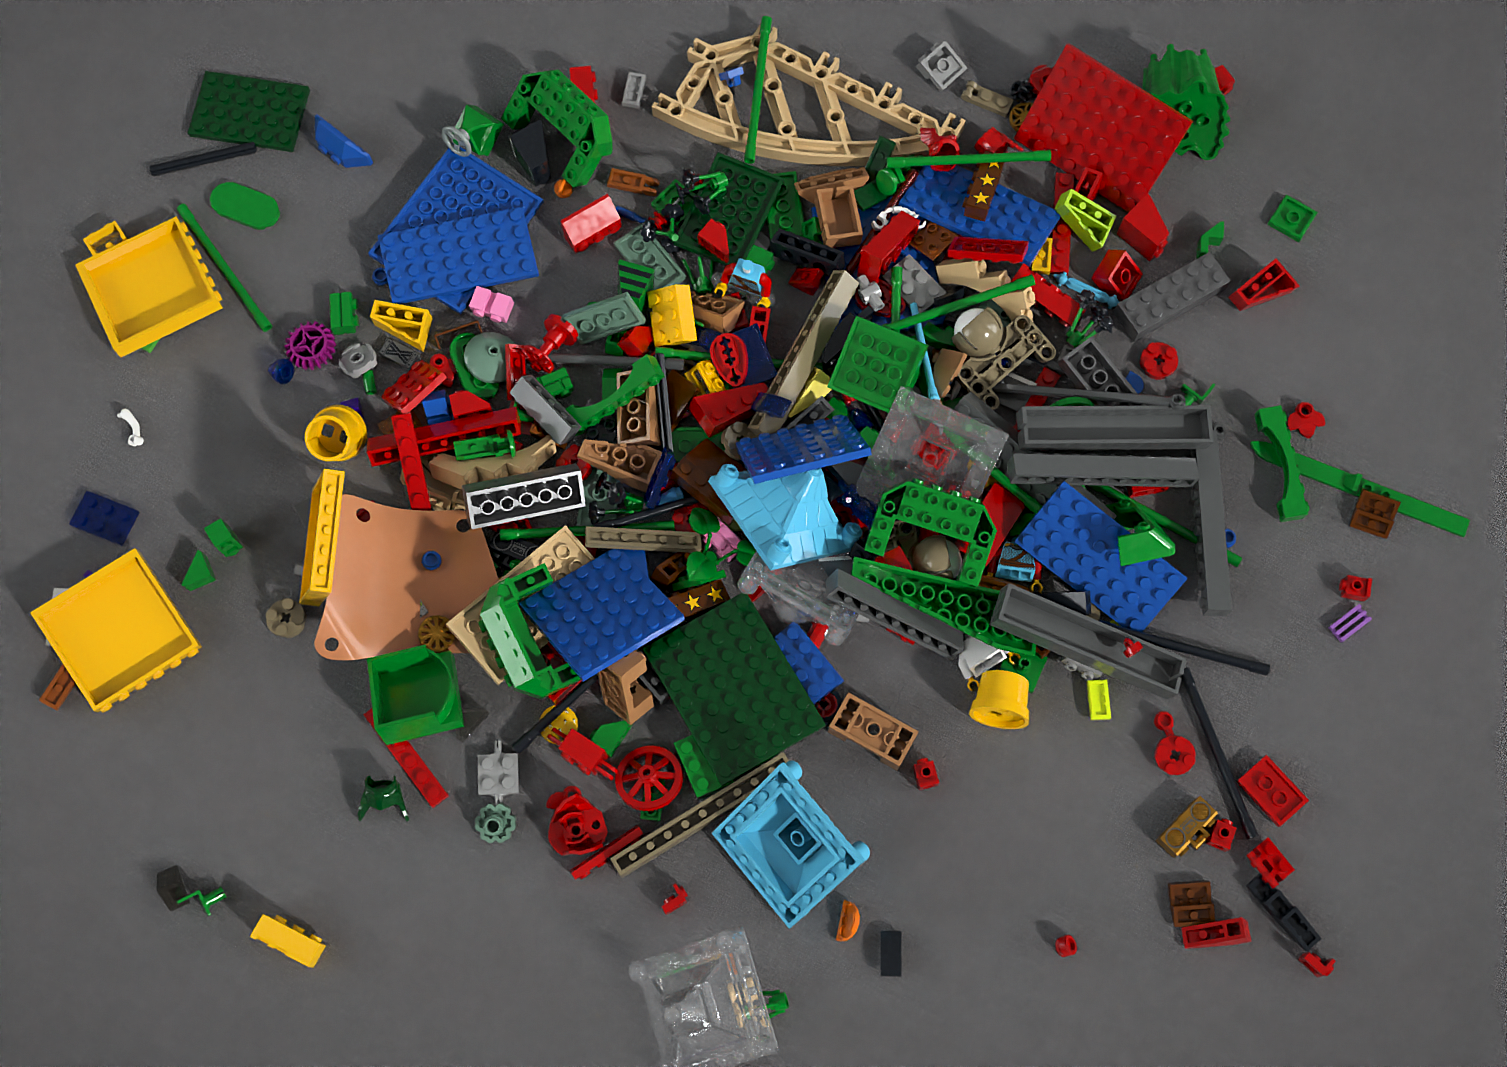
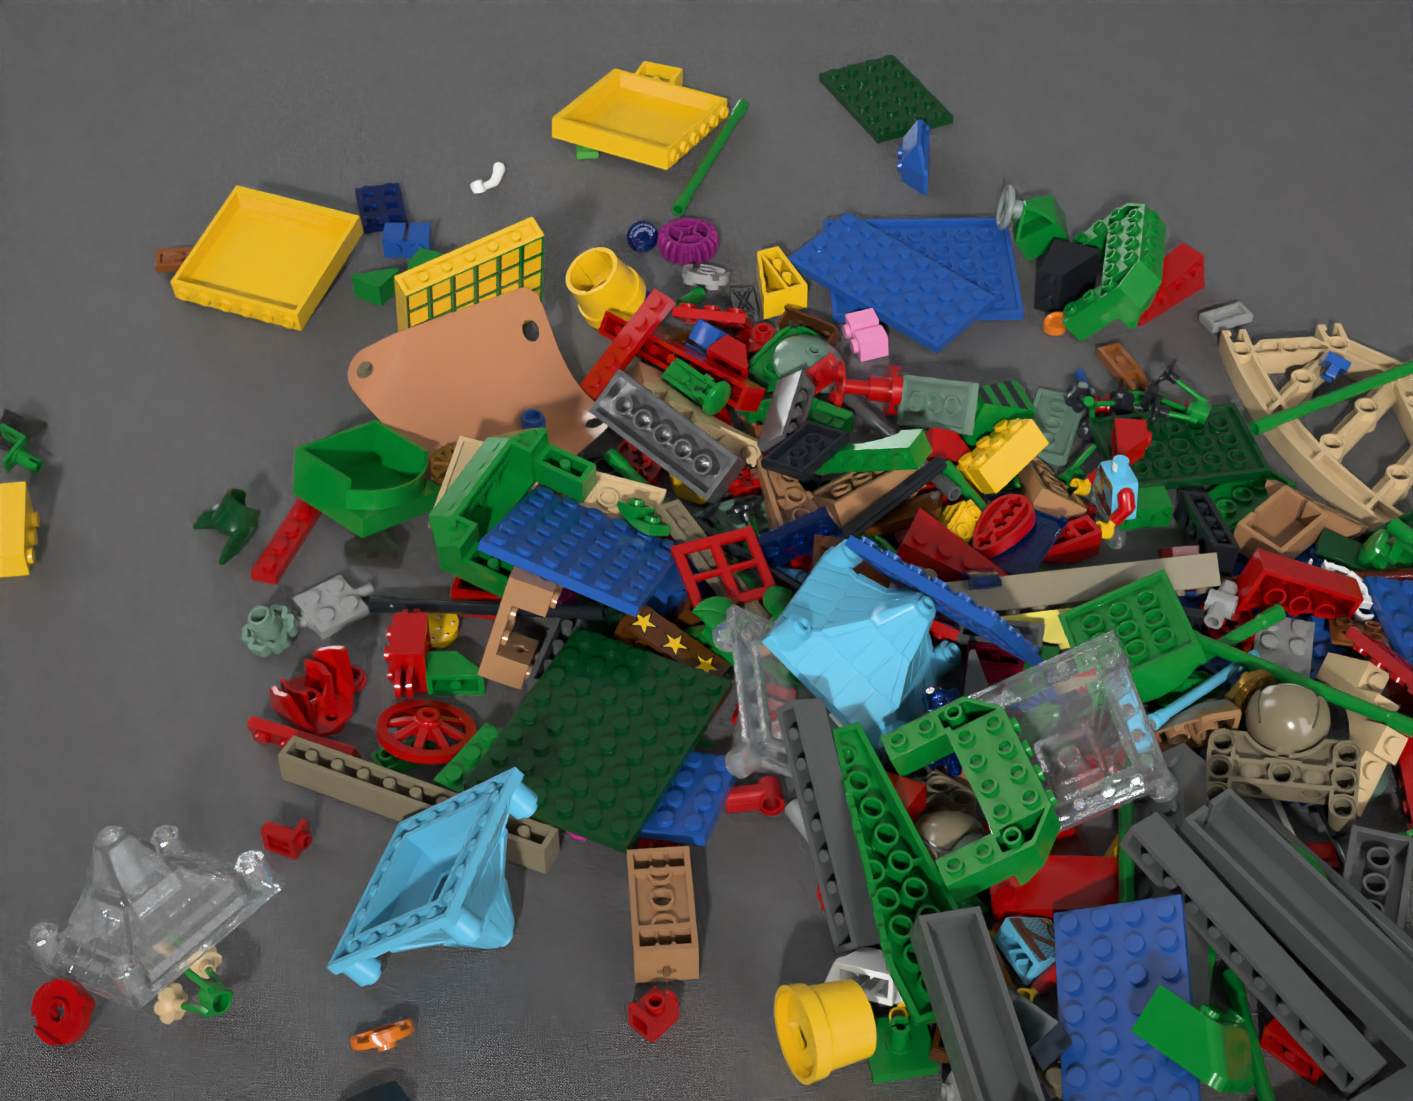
camera: 55 degrees right, 30 degrees down
(165, 524) = (399, 247): none -> blue piece
(202, 159) = (806, 95): black axle -> none
(244, 205) = (787, 139): green tile -> none
(343, 313) = (743, 244): green brick -> none
(580, 557) = (643, 517): none -> green slope
(591, 224) = (1037, 353): slope -> none
(595, 424) = (805, 450): none -> black tile
(658, 537) = (723, 568): none -> red window
(944, 332) = (1247, 686): none -> pearl gold wheel

